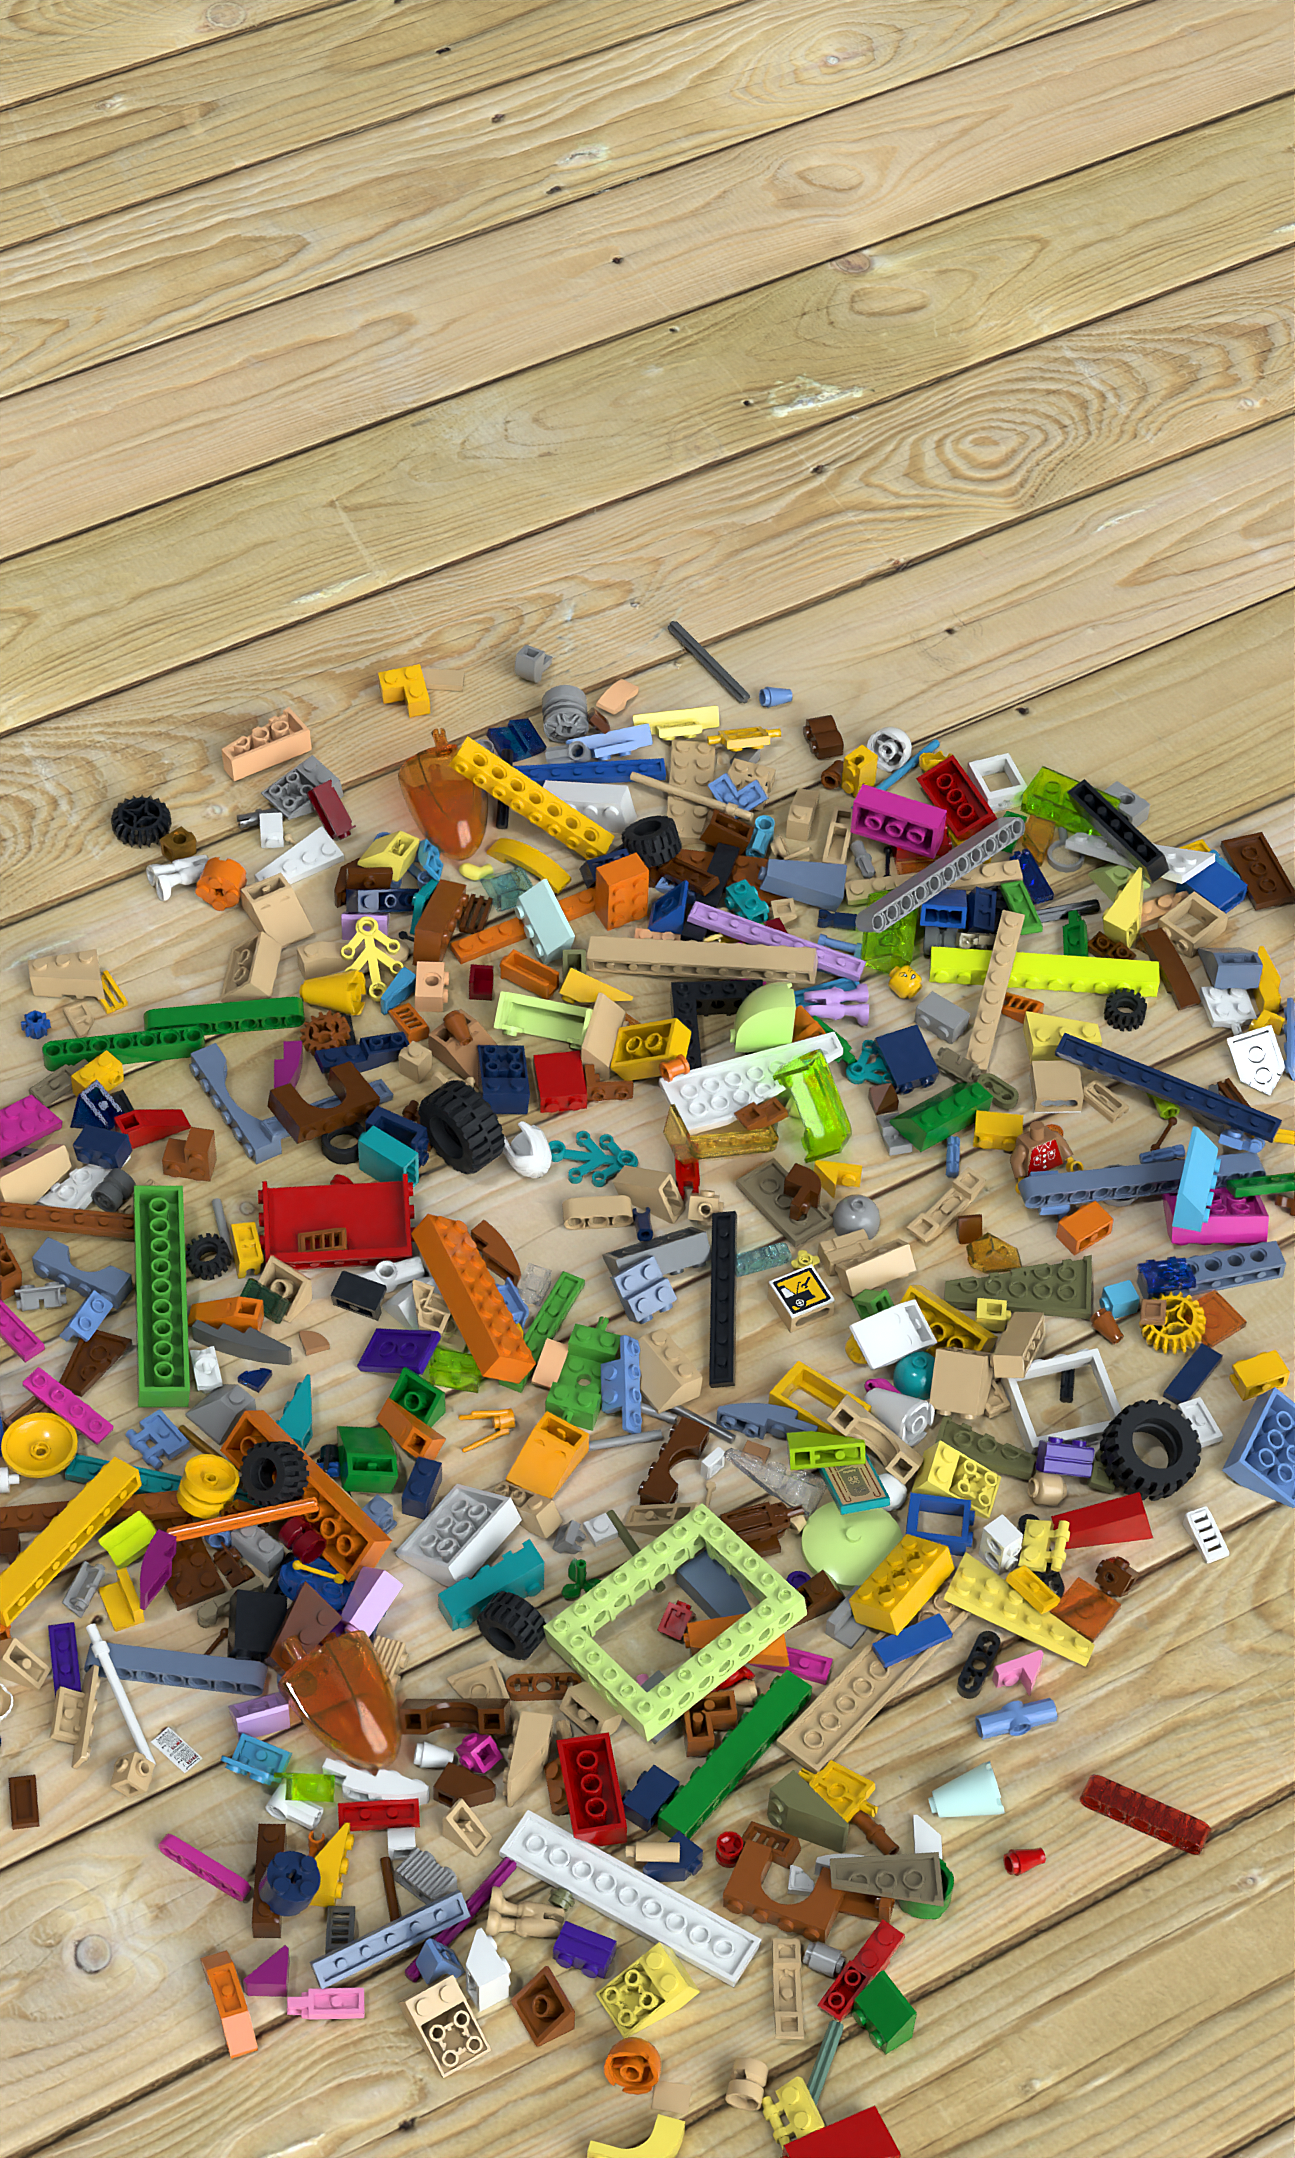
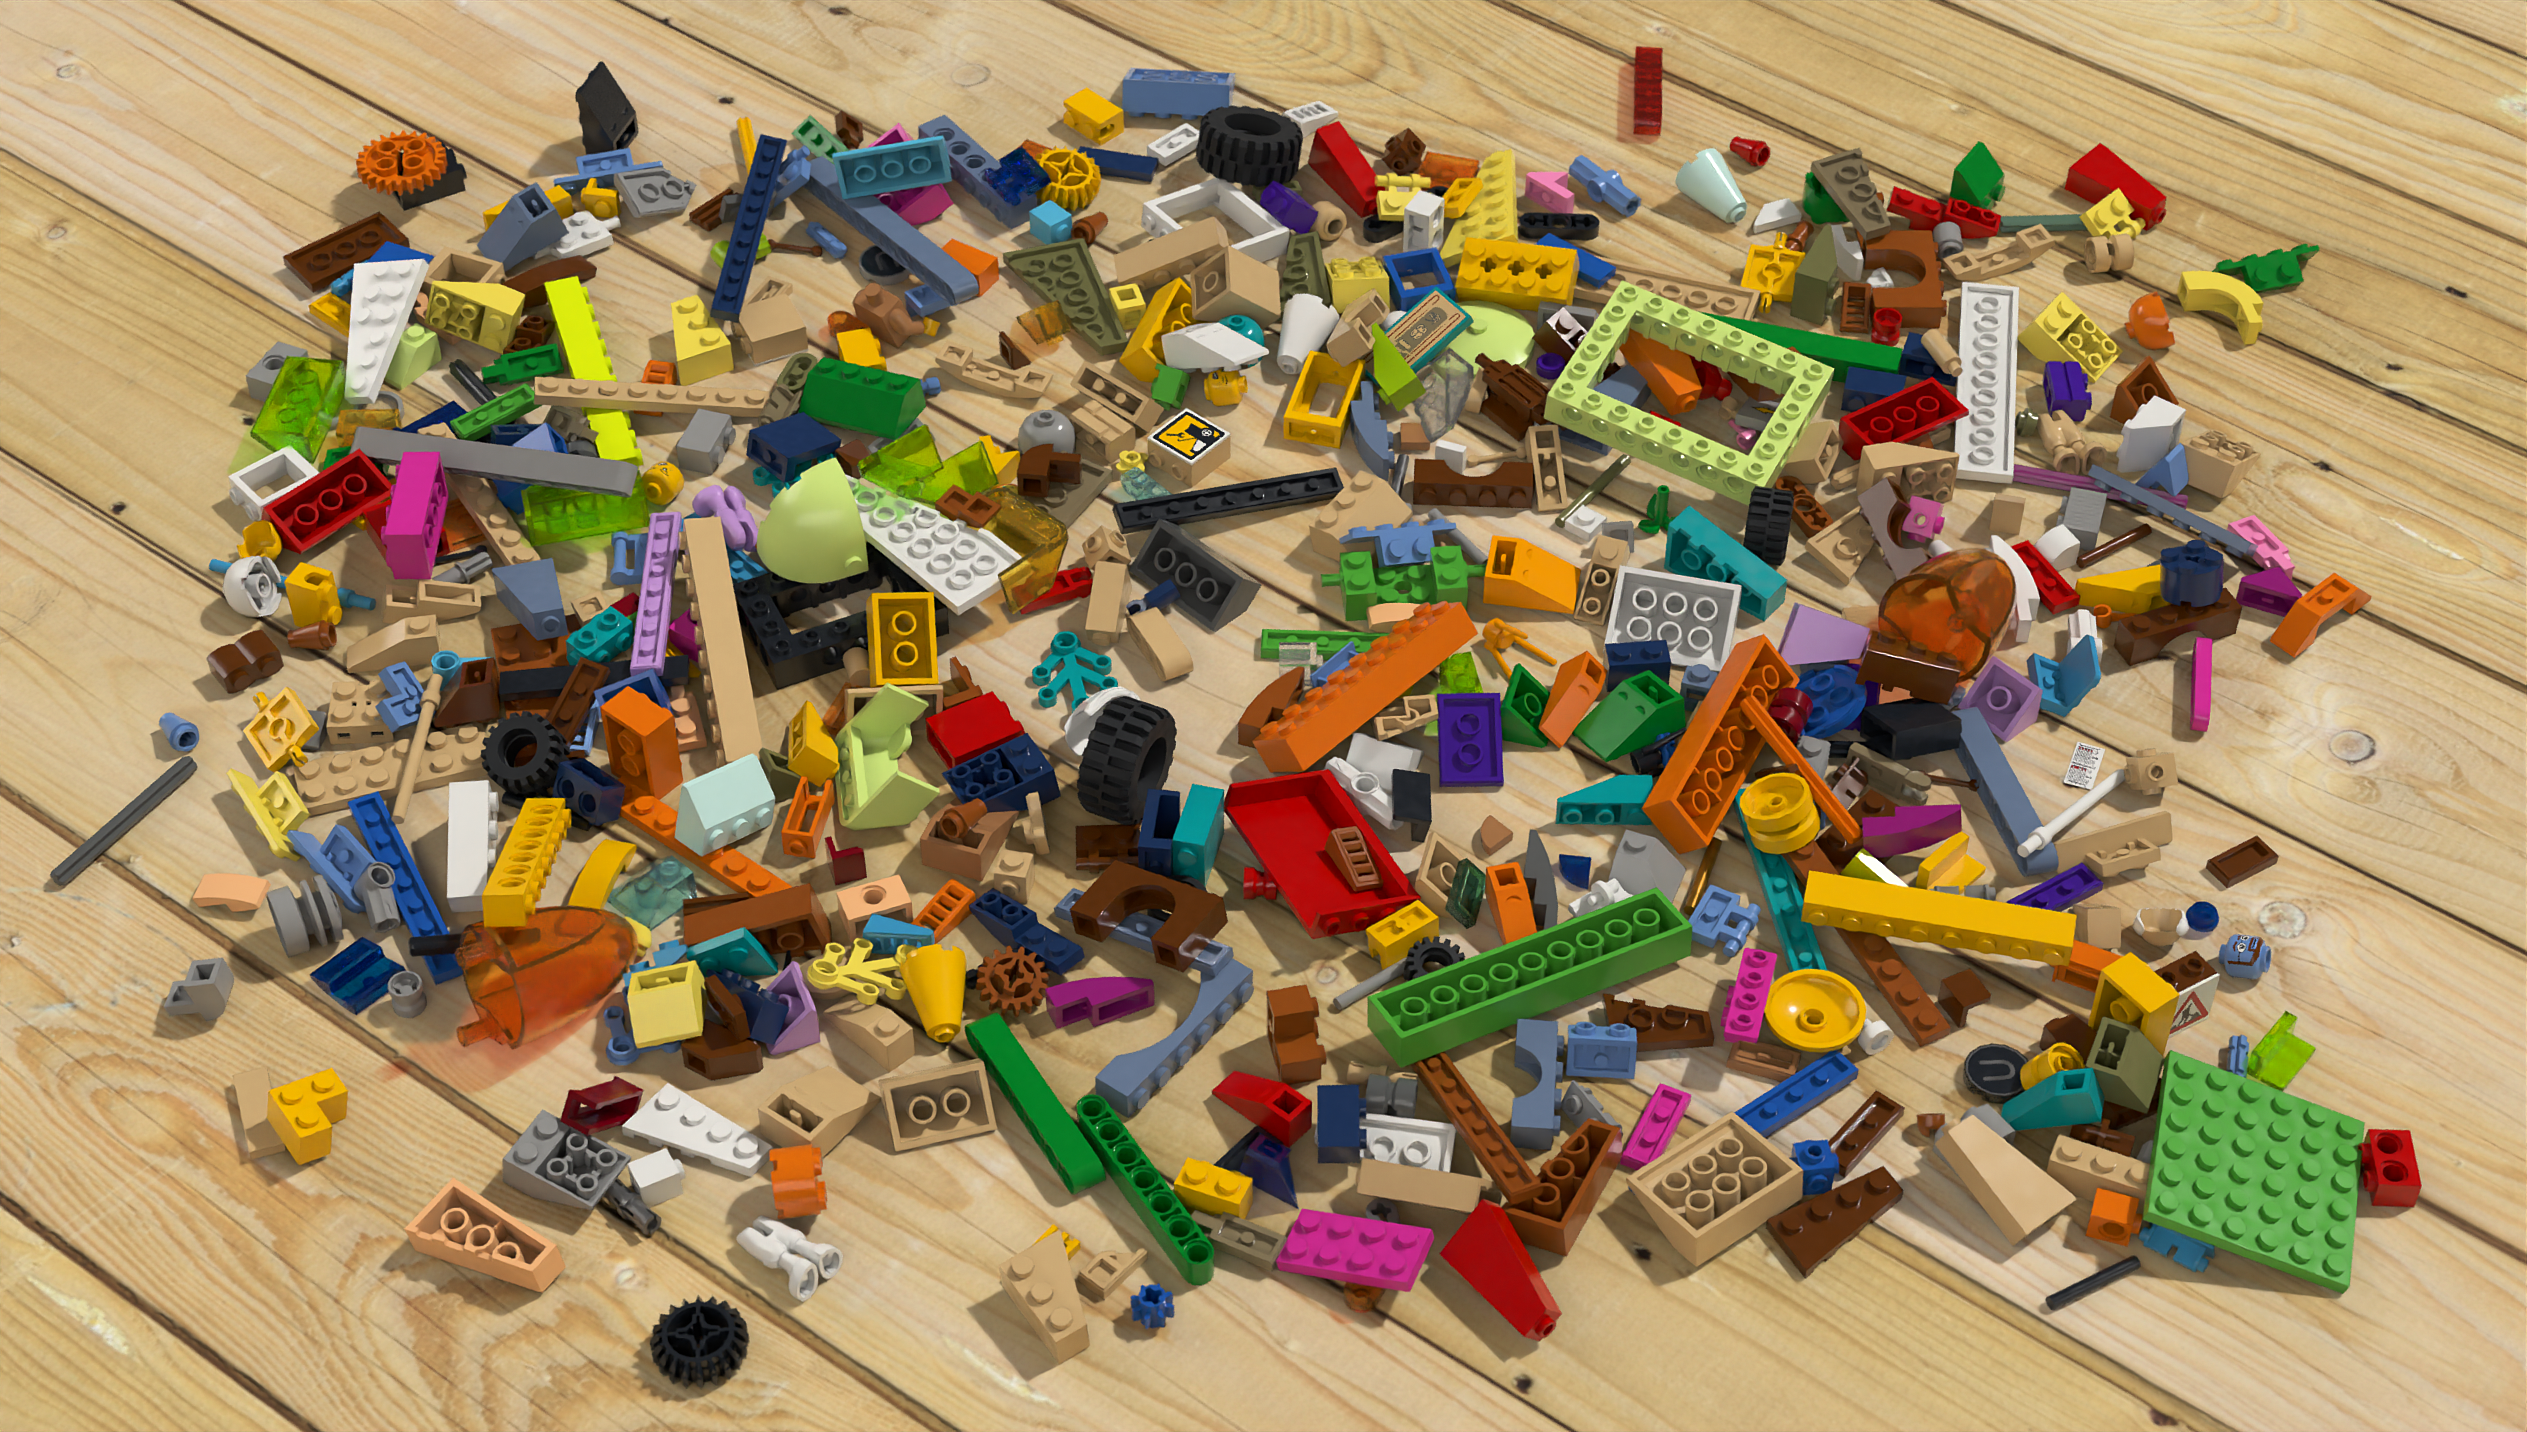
camera: 110 degrees left, 5 degrees down
(178, 844) = (742, 1279): pearl gold brick -> none
(258, 1473) = (1736, 744): black tyre -> none
(308, 1786) = (2058, 628): clear neon green panel -> none
(338, 1578) = (1803, 685): yellow hinge -> none
(459, 1782) = (1966, 522): reddish brown slope -> none
(598, 721) = (310, 871): reddish brown plate -> none
(643, 1290) = (1260, 561): plate -> none
(674, 1068) = (943, 585): orange bush -> none
(780, 848) = (478, 637): tan bracket -> none
(837, 920) = (577, 568): dark blue bar -> none
(879, 1383) = (1267, 367): dark pink arm -> none
(1118, 831) = (369, 319): black brick -> none
(1127, 1000) = (621, 306): black tyre -> none
(1153, 1312) = (1068, 181): medium nougat tile -> none

